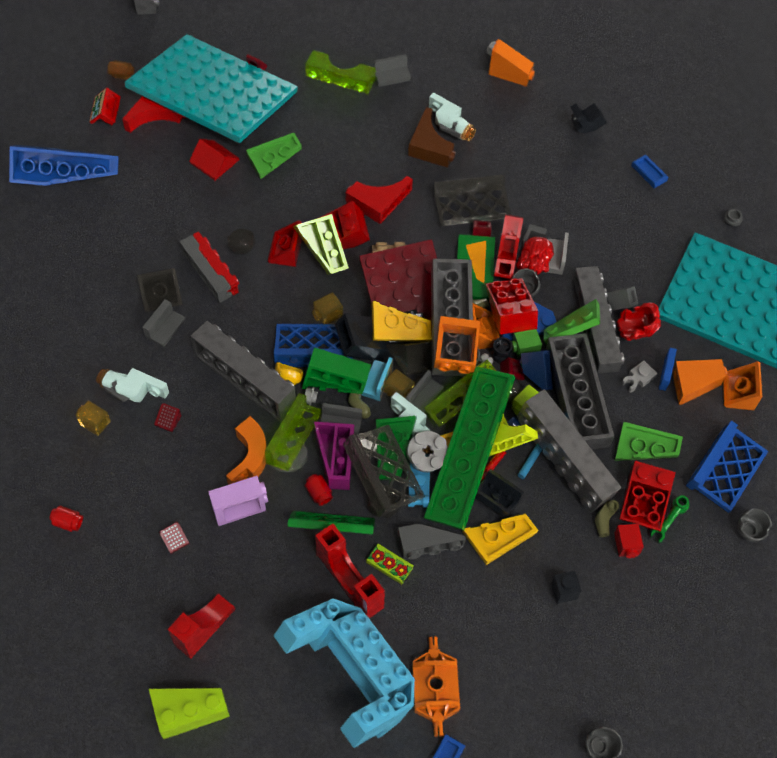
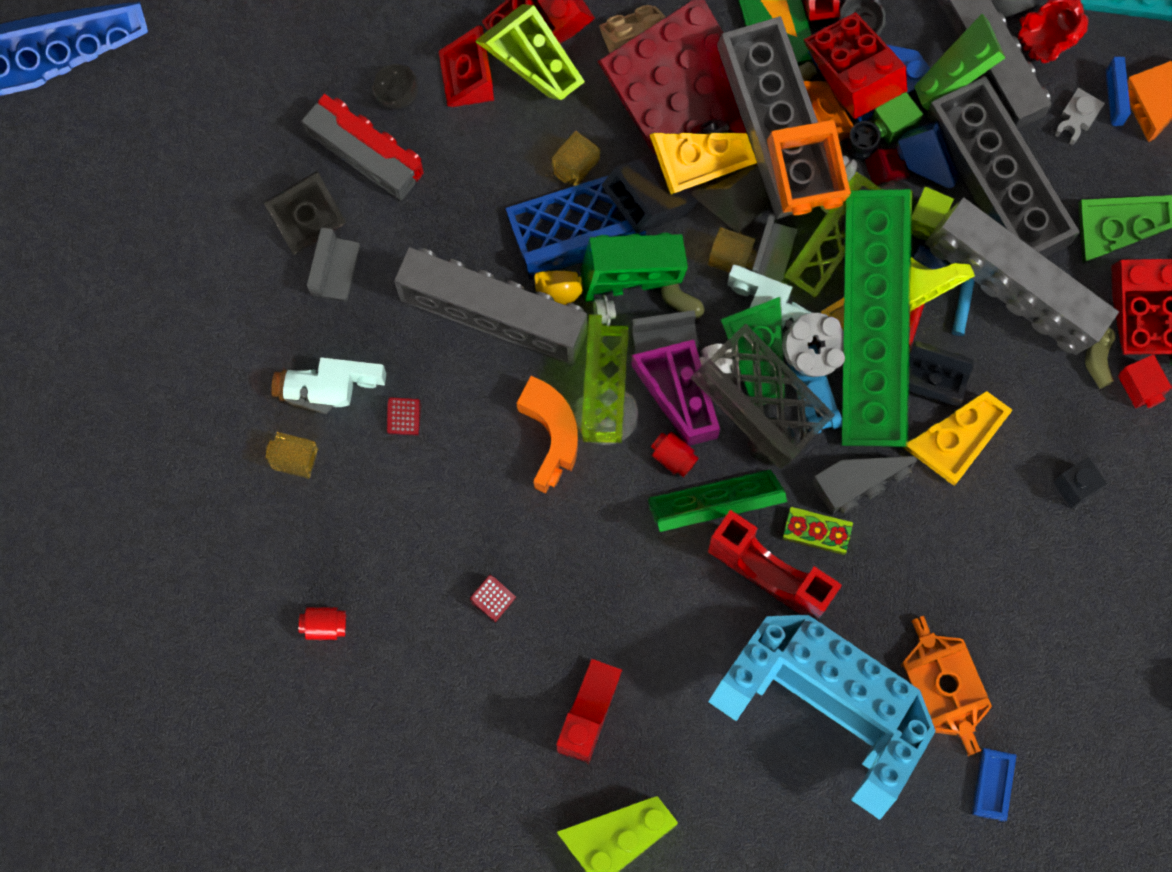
camera: 15 degrees left, 15 degrees up
(238, 500) = (567, 513): lavender window -> none
(377, 376) = (697, 247): medium azure panel -> none

